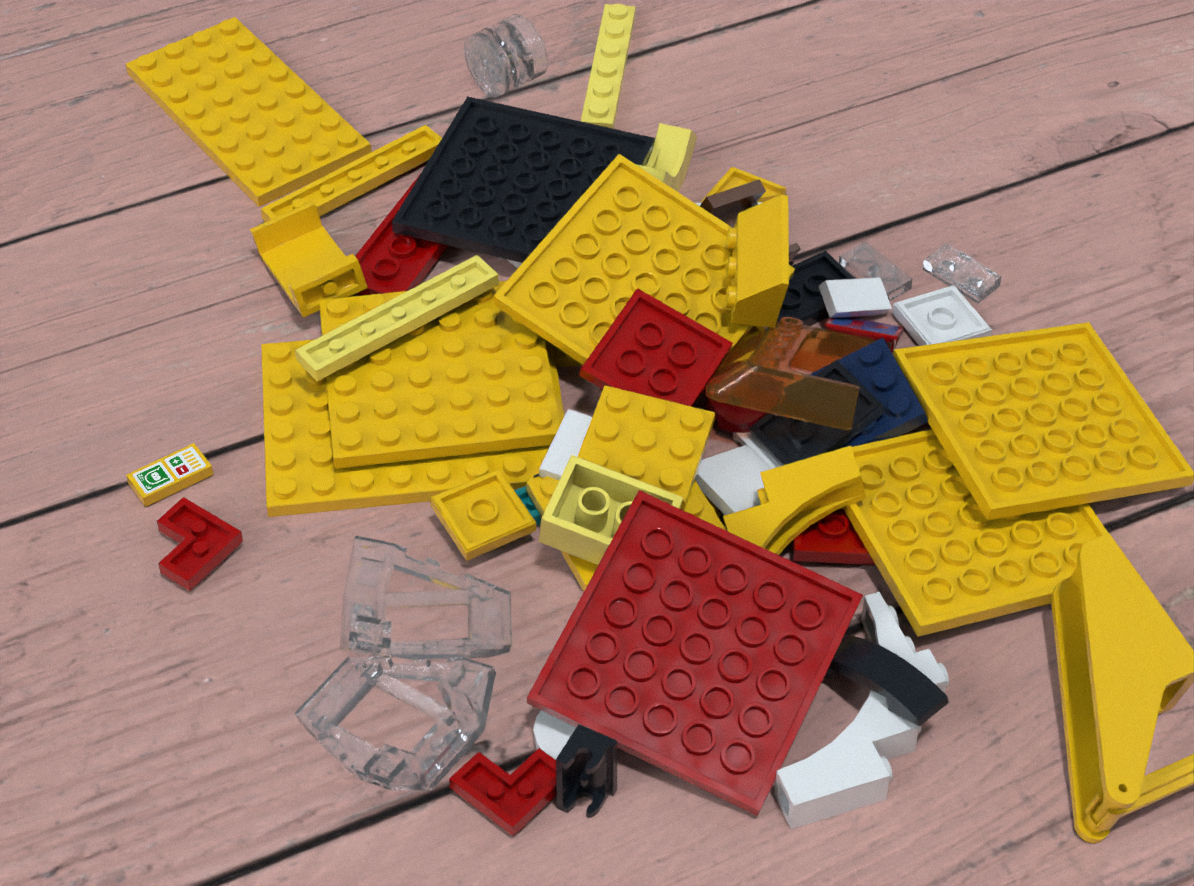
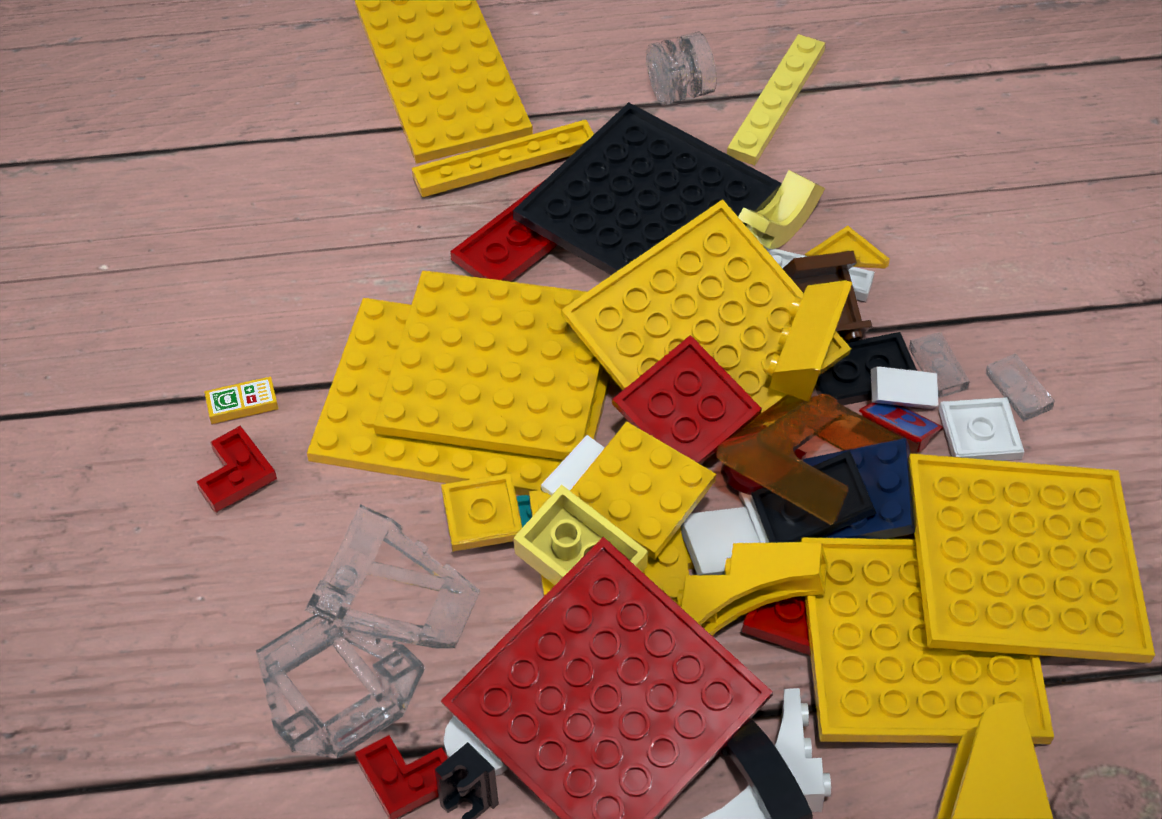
camera: 20 degrees right, 5 degrees up
(307, 259) = (430, 227): yellow panel -> none
(396, 318) = (476, 306): light yellow plate -> none

